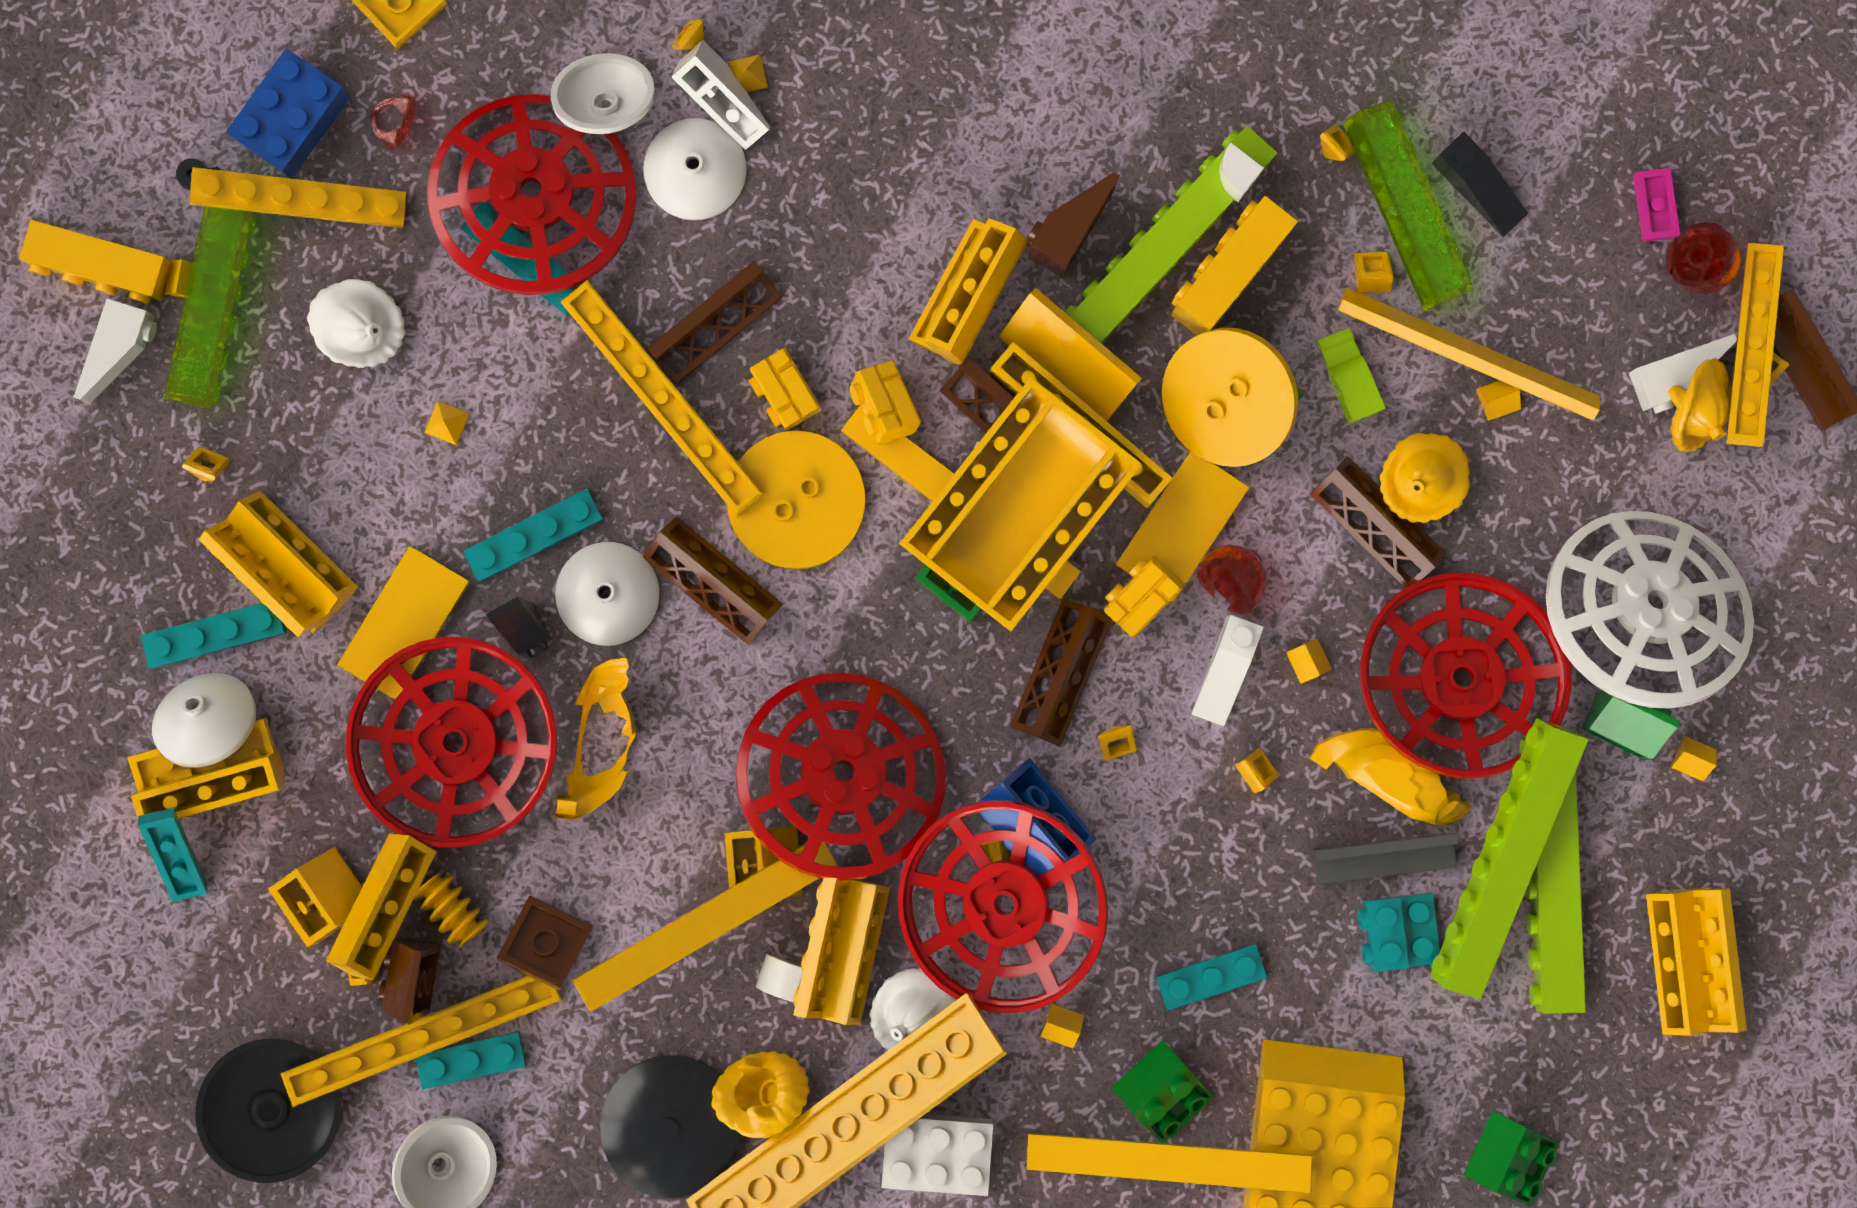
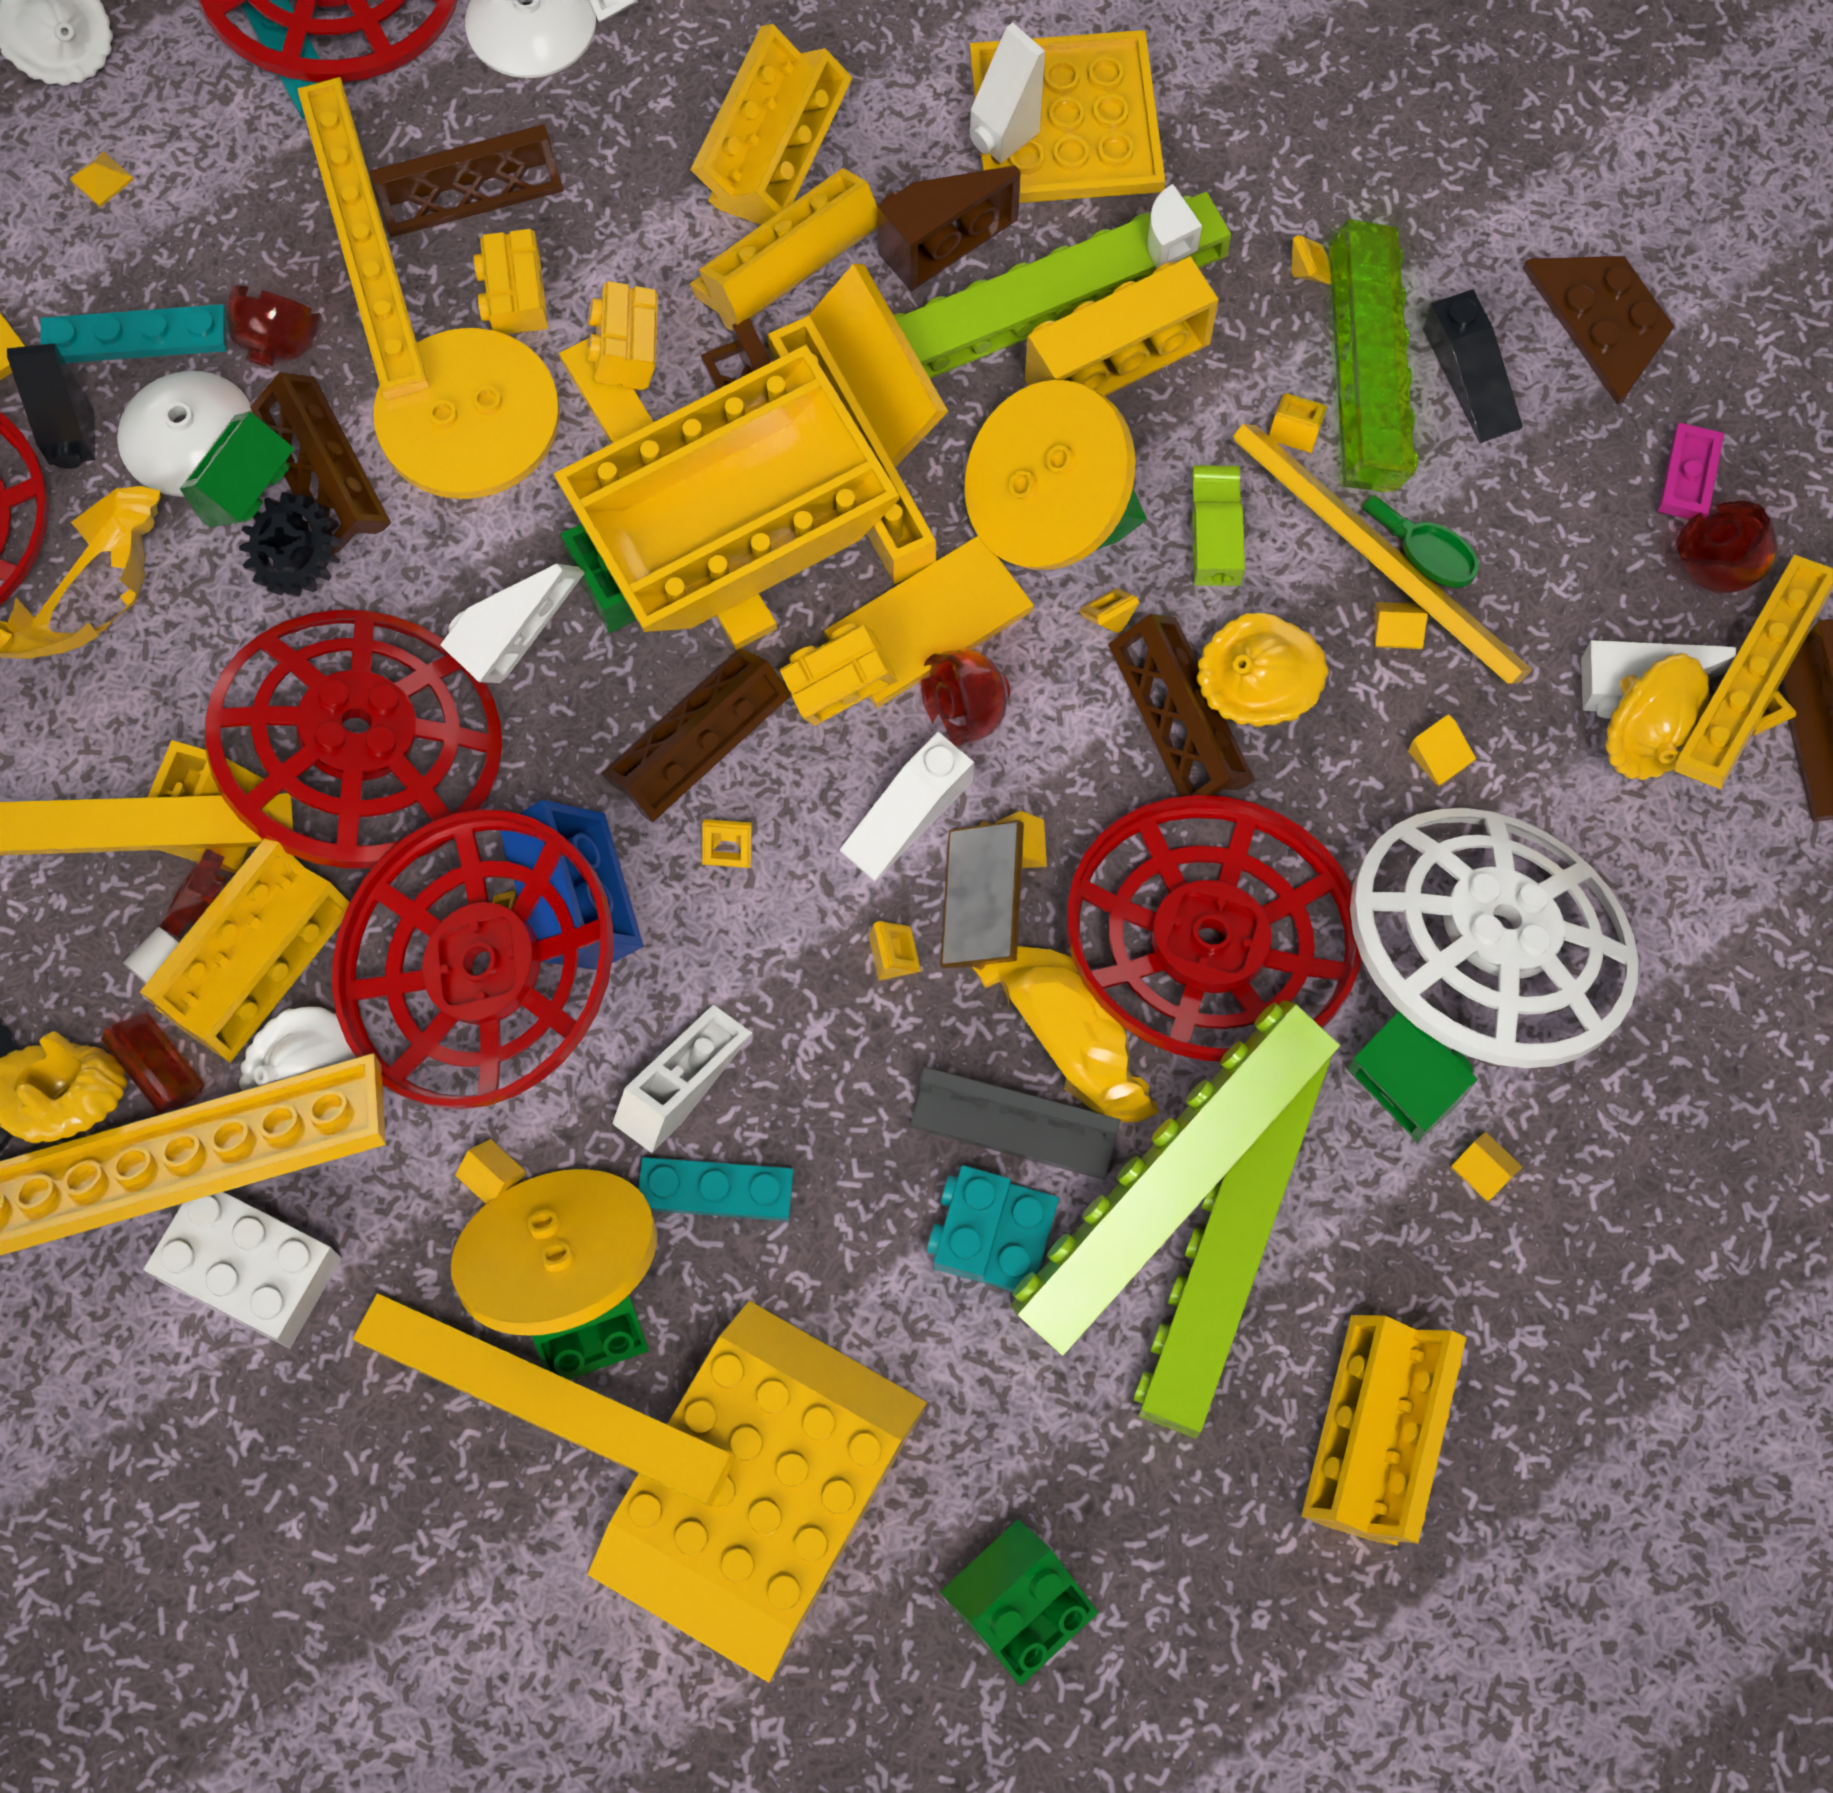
camera: 25 degrees right, 15 degrees down
(631, 496) = (269, 326): none -> clear red cylinder
(672, 621) = (237, 471): none -> green slope
(723, 667) = (300, 560): none -> black gear
(788, 928) = (194, 893): none -> clear red plate
(812, 1047) = (152, 1062): none -> clear red plate
(902, 654) = (501, 628): none -> white slope
(916, 195) = (770, 127): none -> yellow brick
(1085, 118) = (1010, 97): none -> white slope
(1118, 96) = (1094, 119): none -> yellow plate
(1136, 1068) = (554, 1252): none -> yellow plate
(1159, 915) = (679, 1078): none -> white slope
(1301, 710) = (982, 895): none -> flat silver piece
(1312, 466) = (1111, 609): none -> yellow slope
(1499, 333) = (1429, 546): none -> green piece
(1554, 102) = (1605, 314): none -> reddish brown wing
(1562, 482) = (1442, 750): none -> yellow slope

